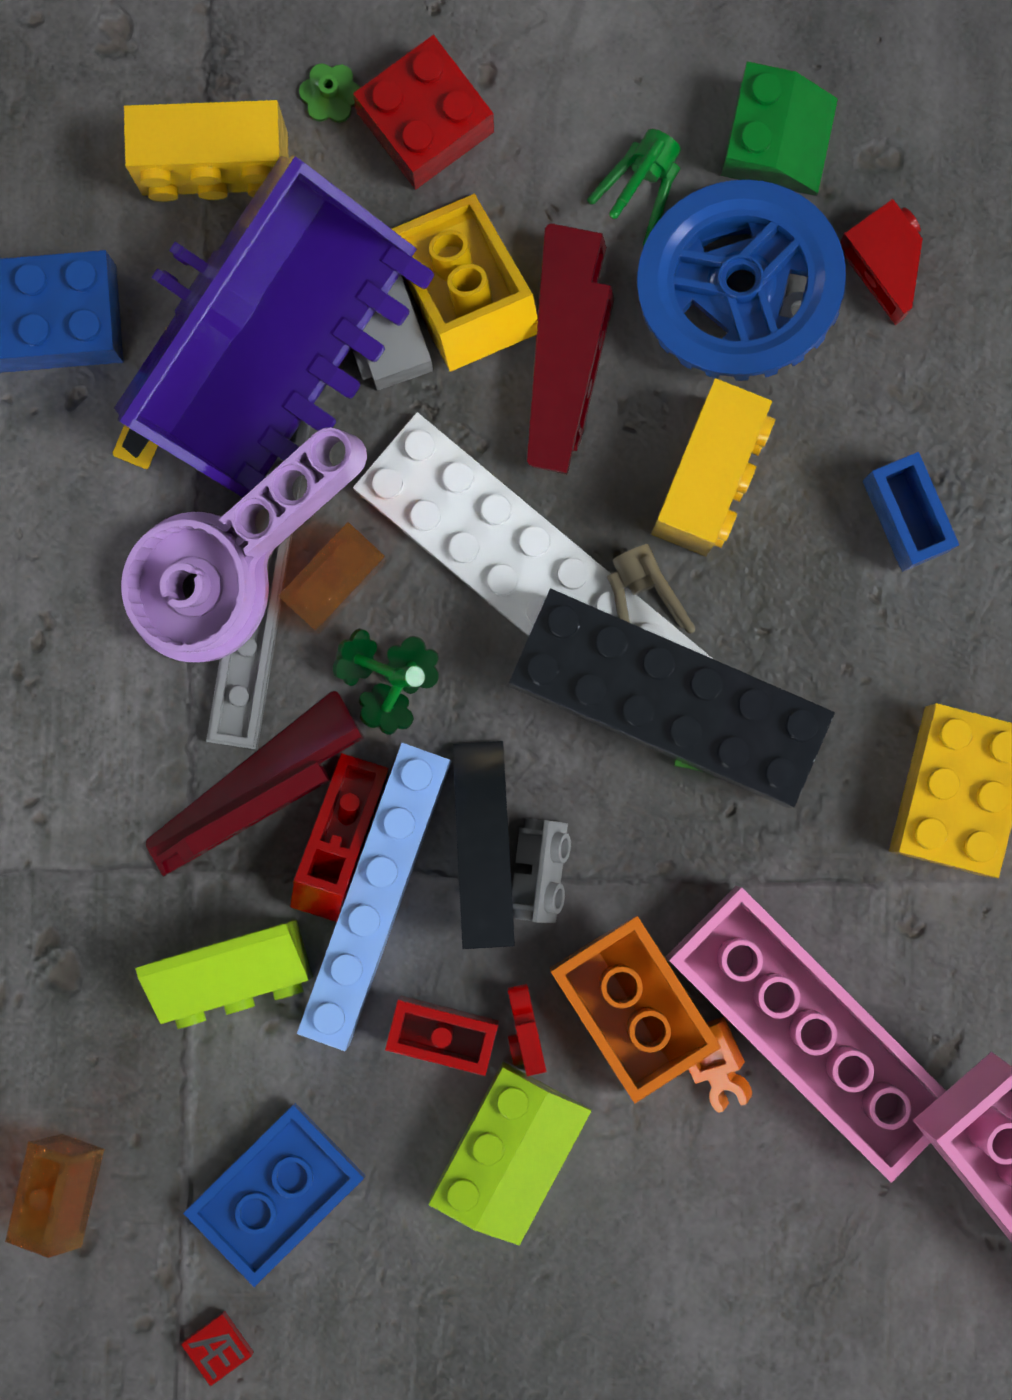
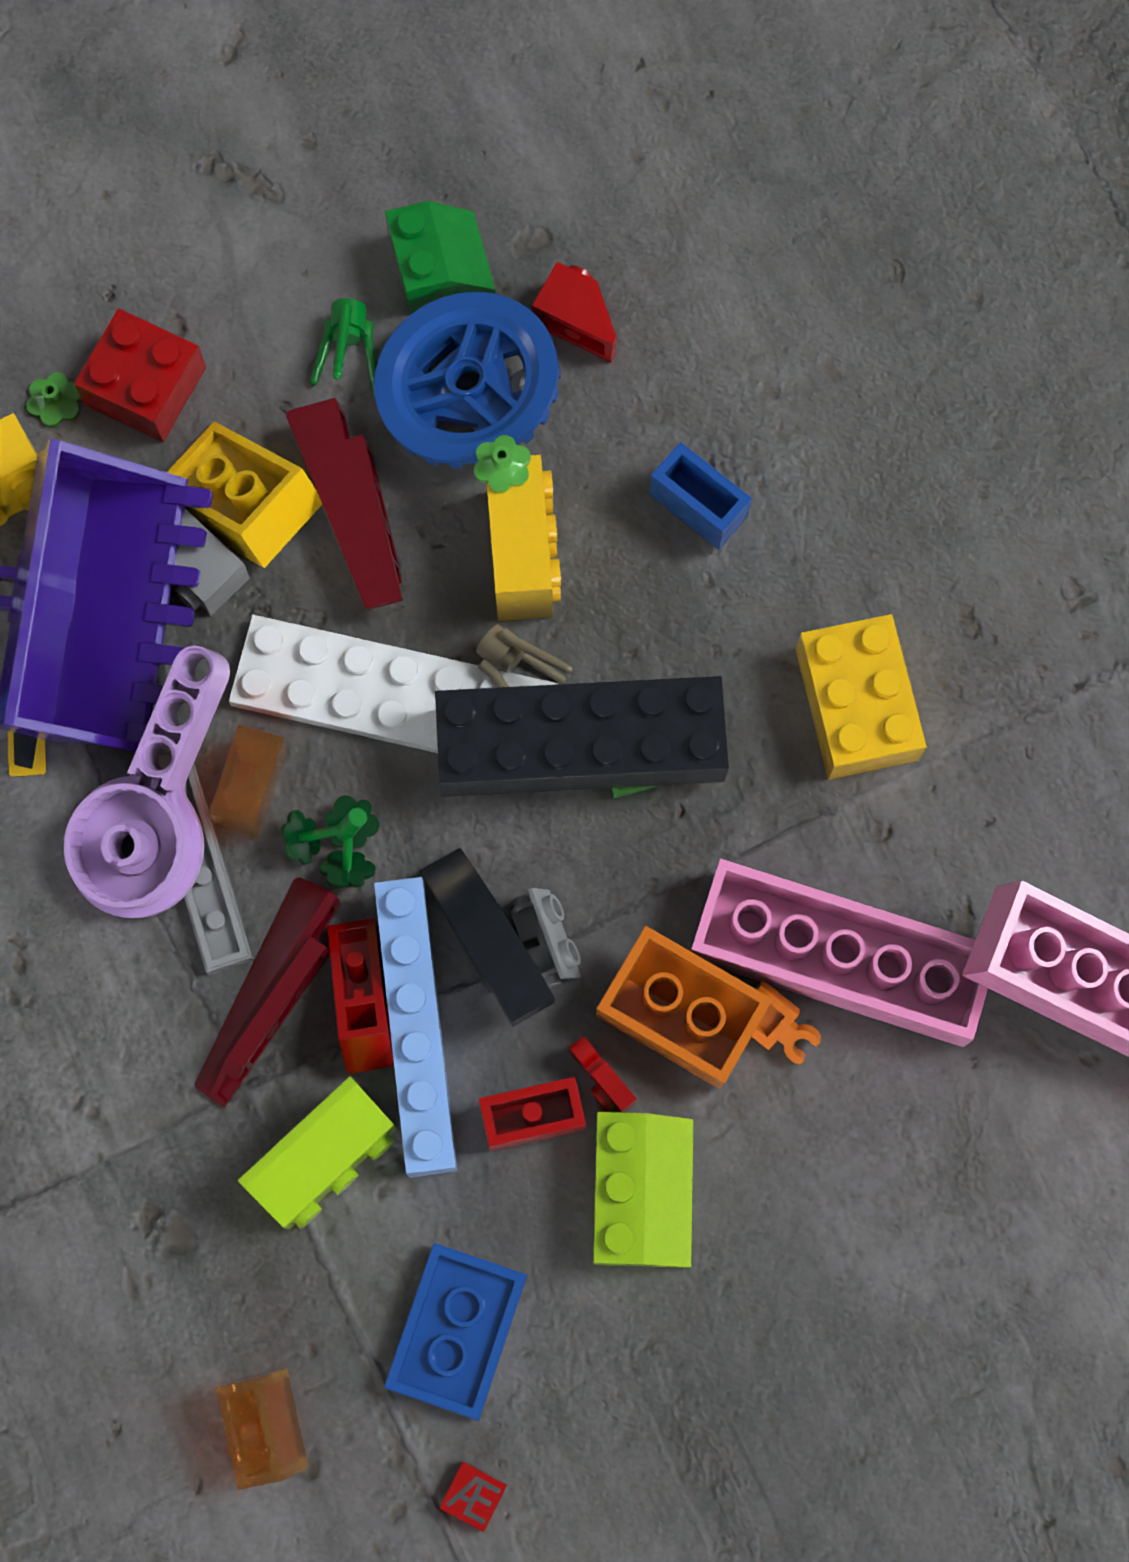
camera: 30 degrees left, 10 degrees down
(727, 404) = (502, 472): none -> bright green plant

